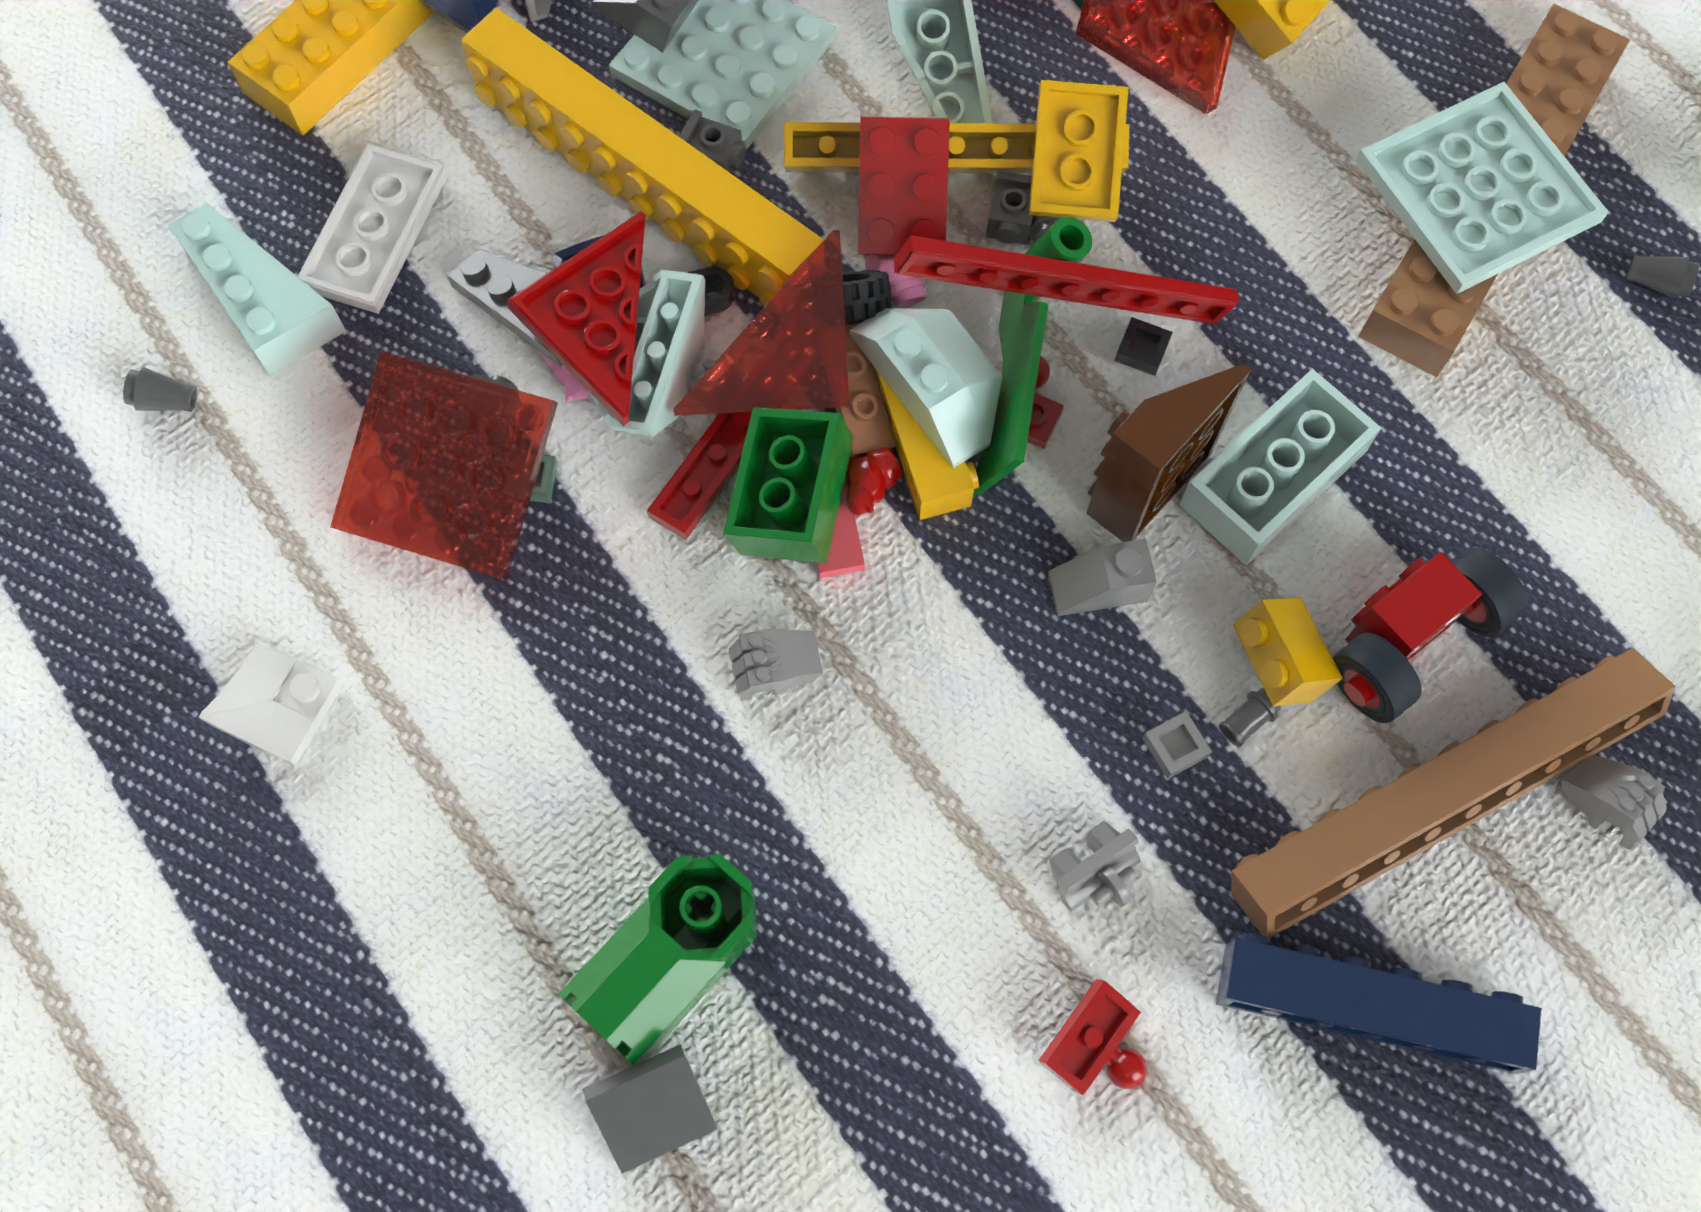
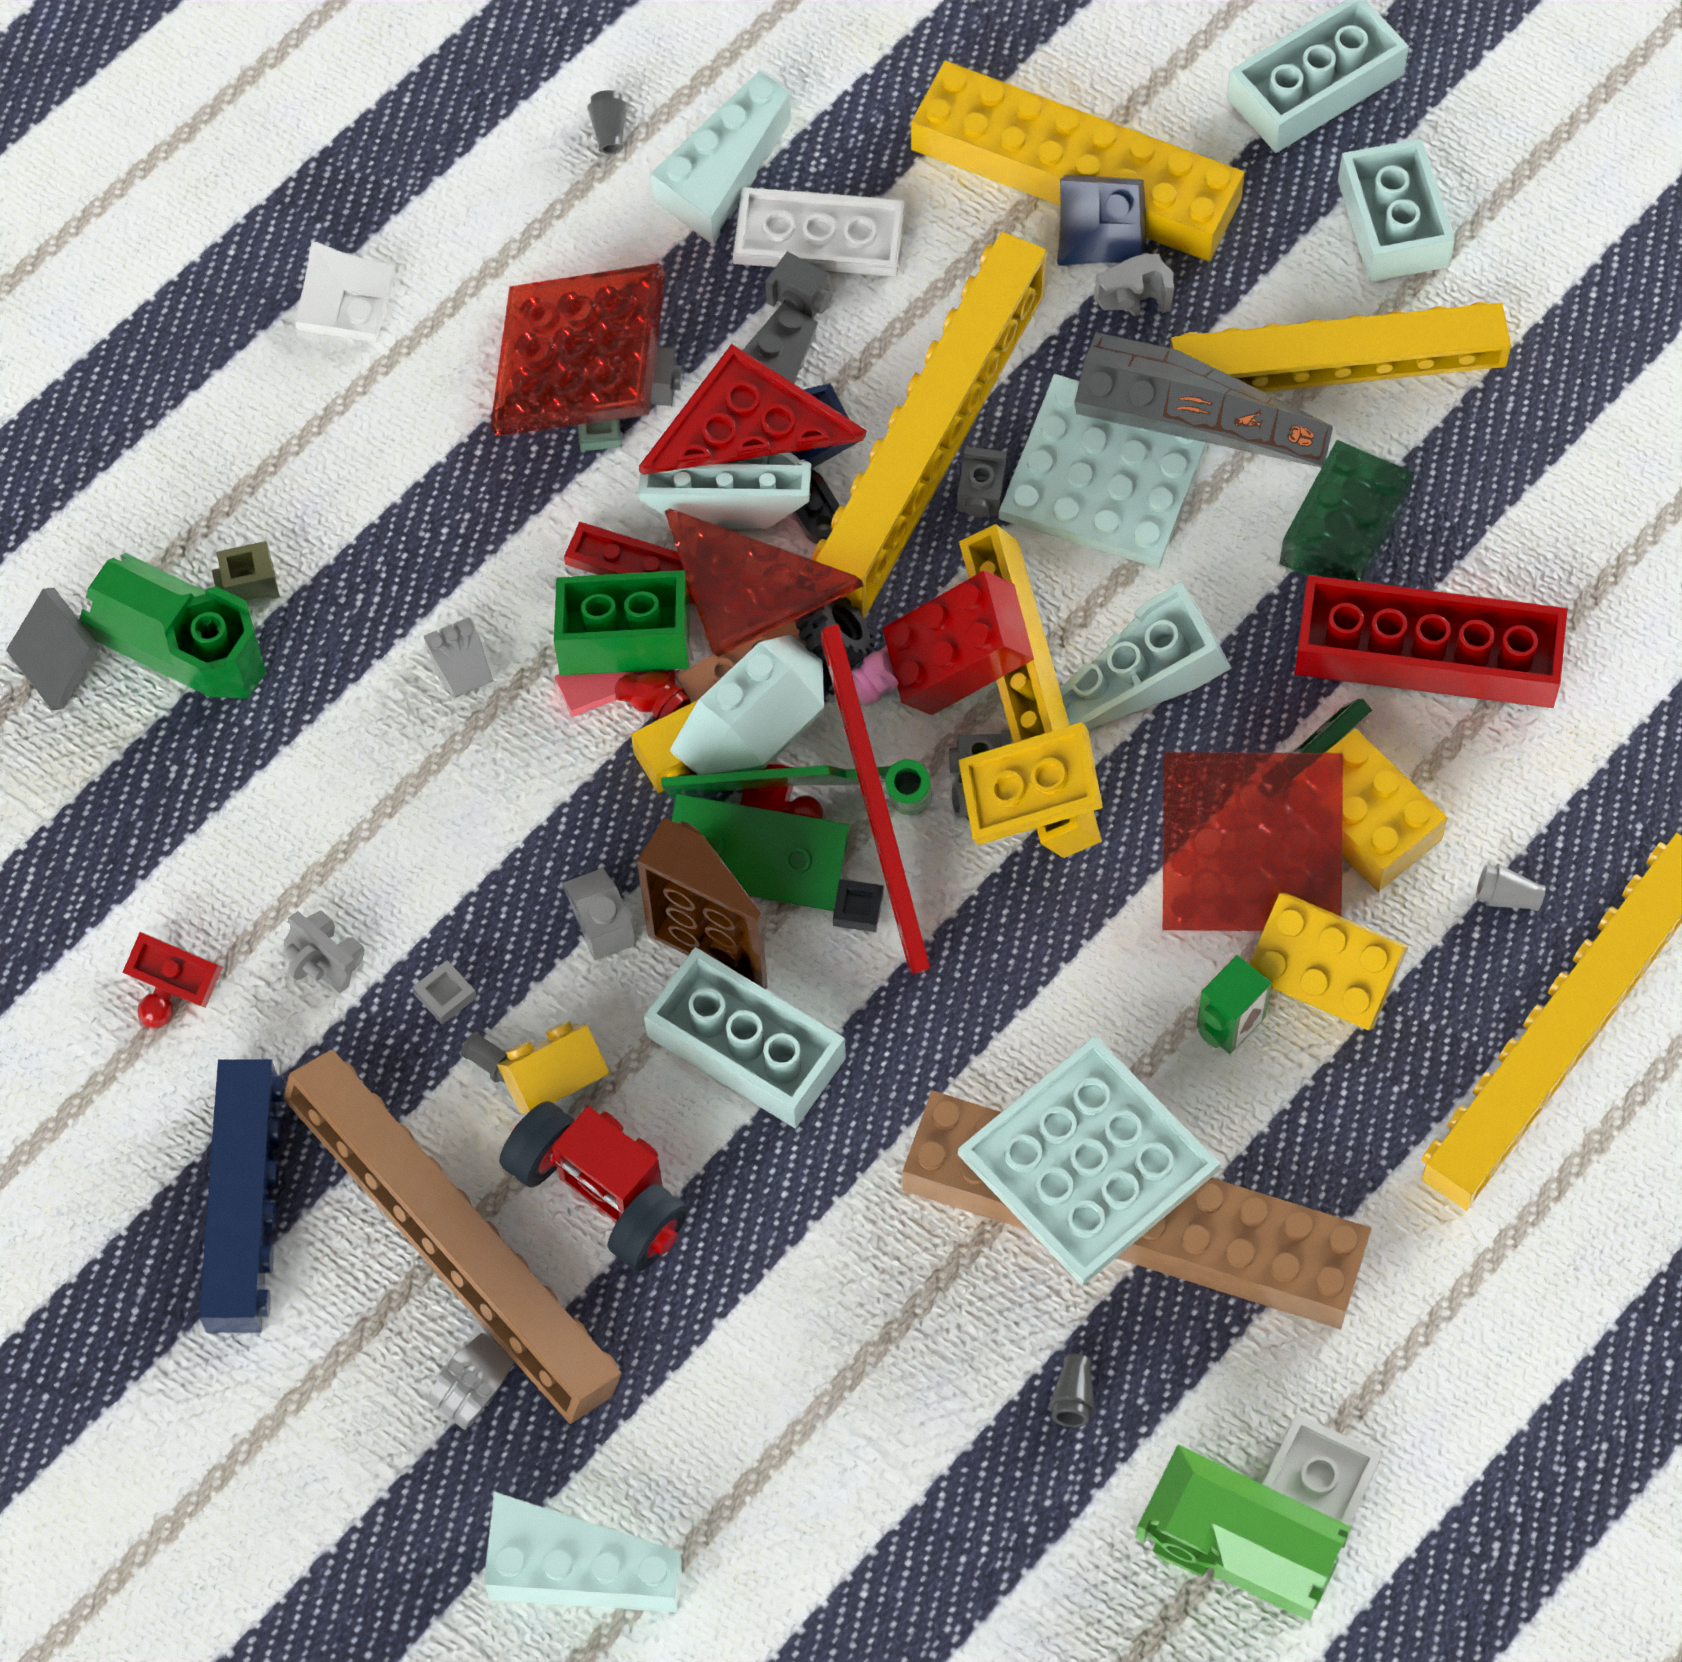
camera: 80 degrees right, 5 degrees down
(432, 253) = (799, 286): none -> dark grey brick
(602, 853) = (246, 572): none -> olive brick
(1070, 419) = (772, 851): none -> green plate
(1318, 58) = (1233, 1005): none -> green brick

